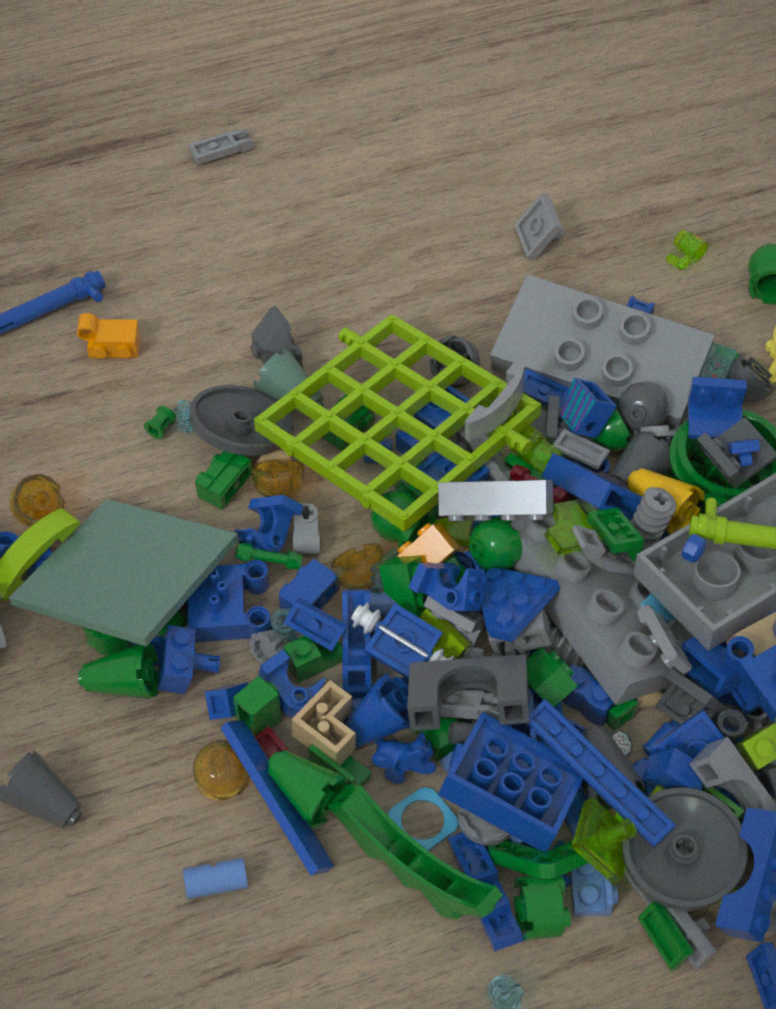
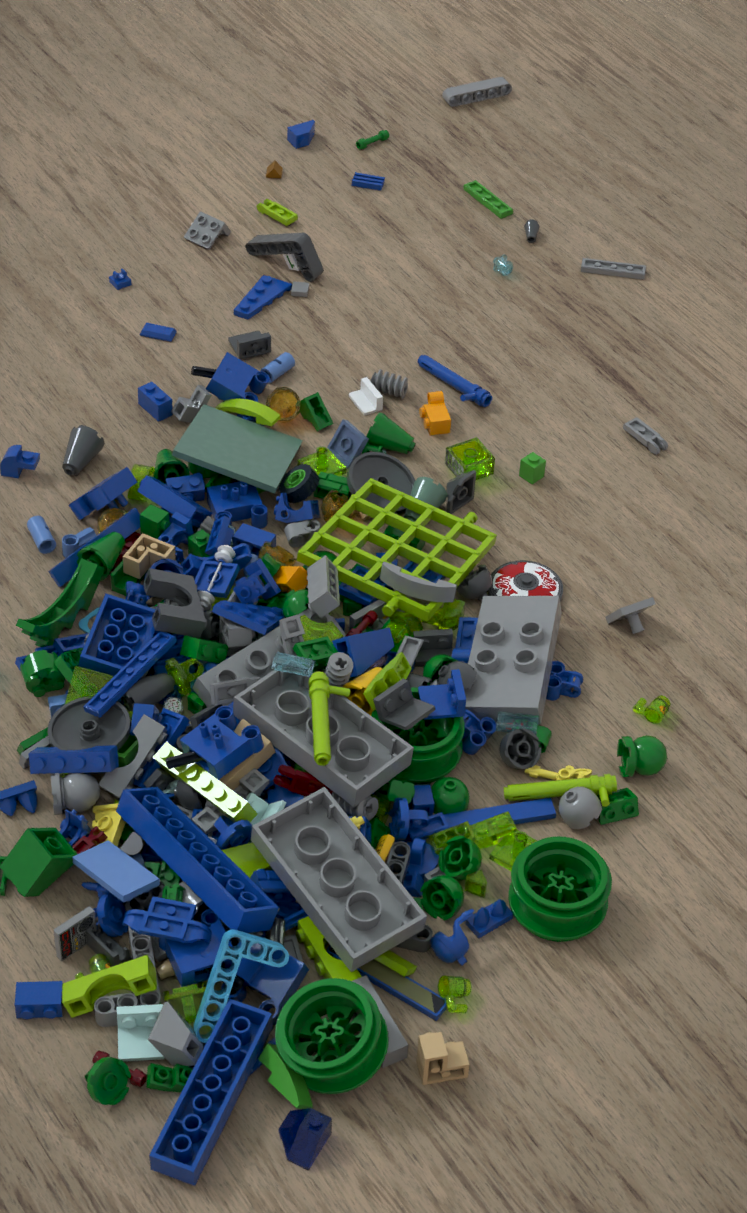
camera: 75 degrees right, 10 degrees down
(26, 372) = (390, 384): none -> light grey piece
(31, 892) = (16, 460): none -> blue brick
(40, 407) = (367, 398): none -> white panel
(58, 466) = (315, 411): none -> green arch
(138, 713) = (139, 473): none -> clear neon green brick
(139, 396) = (390, 435): none -> green cone
(147, 442) = (347, 443): none -> sand blue tile
(163, 762) = (104, 494): none -> blue piece
(166, 487) = (323, 461): none -> clear neon green tile
(218, 672) = (173, 500): none -> blue slope
(222, 318) = (470, 456): none -> clear neon green brick
(222, 498) = (299, 483): none -> black wheel
(245, 552) = (269, 500): green bar -> none
(247, 825) = (73, 542): none -> medium blue piece
(251, 261) = (532, 468): none -> bright green brick
(464, 312) = (525, 579): none -> dish
(586, 408) = (431, 642): blue torso -> none
(592, 710) = (181, 673): none -> clear neon green tile
(655, 554) = (293, 664): none -> clear light blue tile
(664, 463) = (392, 673): none -> lime slope
(694, 548) = (298, 679): blue tile -> none
(743, 450) = (400, 704): blue tile -> none

